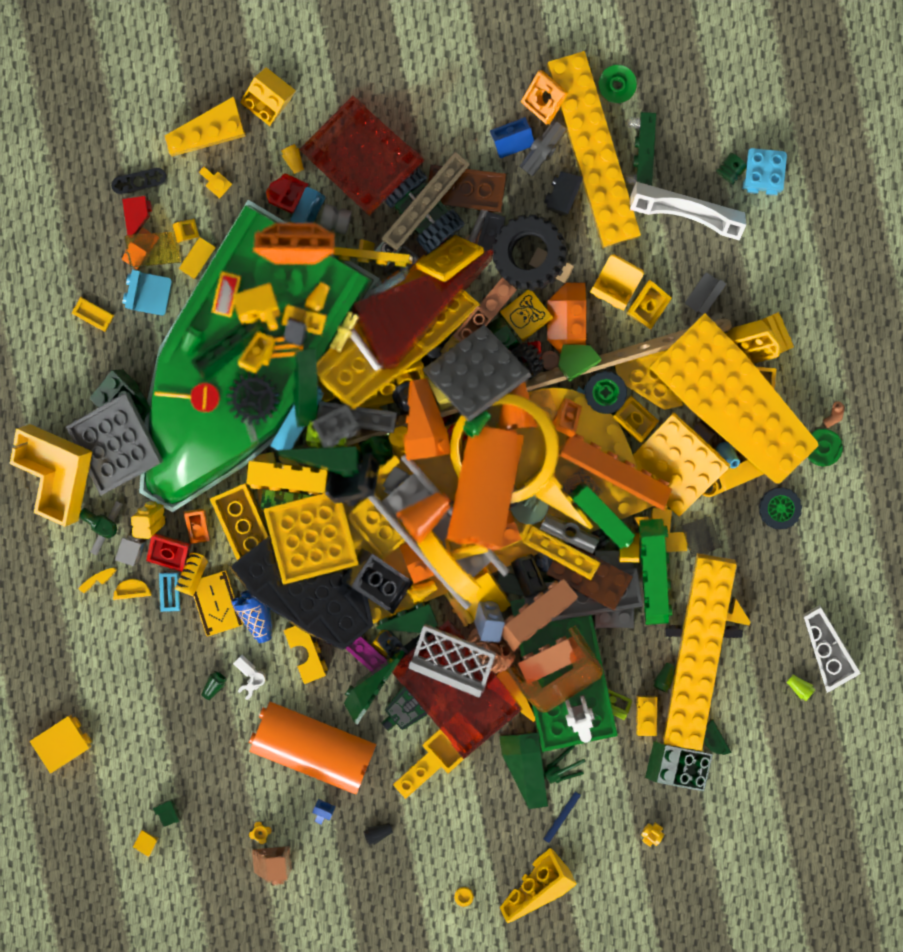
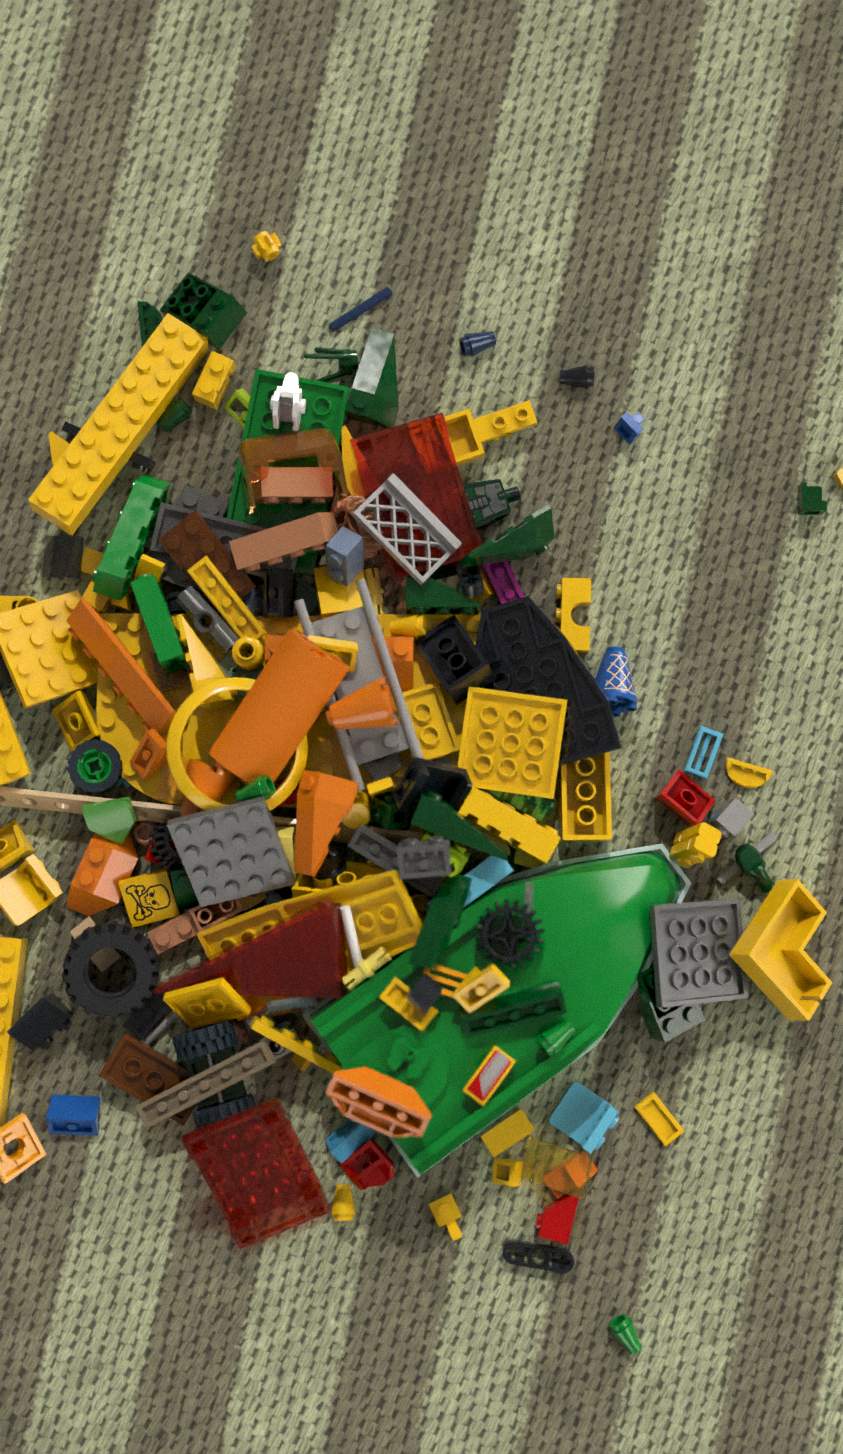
camera: 145 degrees left, 5 degrees down
(55, 154) = (624, 1331): none -> green cone
(102, 577) = (776, 802): yellow slope -> none
(191, 574) = (669, 761): yellow brick -> none
(197, 526) = (639, 814): orange slope -> none
(203, 397) = (569, 961): red piece -> none
(206, 130) = (427, 1283): yellow wedge -> none
(213, 685) = (695, 623): dark green cone -> none
(214, 604) = (656, 720): yellow tile -> none
(255, 833) = (715, 427): yellow plate -> none
(256, 304) = (455, 1046): yellow hinge -> none
(257, 677) = (642, 609): white bar -> none
(267, 96) = (341, 1293): yellow slope -> none
(272, 864) = (714, 386): nougat wedge -> none
(312, 747) = (612, 503): orange cylinder -> none
(317, 298) = (382, 1022): yellow cone -> none
(335, 219) = (321, 1108): light grey wheel -> none
(448, 567) = (363, 636): yellow slope -> none
(463, 827) = (475, 343): none -> dark blue cone
(463, 896) = (510, 267): yellow tile -> none
(535, 521) = (241, 650): none -> yellow head
(543, 148) = (43, 1087): dark grey piece -> none
(545, 883) = (414, 241): yellow wedge -> none
(646, 383) = (44, 759): yellow plate -> none
(801, 687) = (26, 339): lime cone -> none

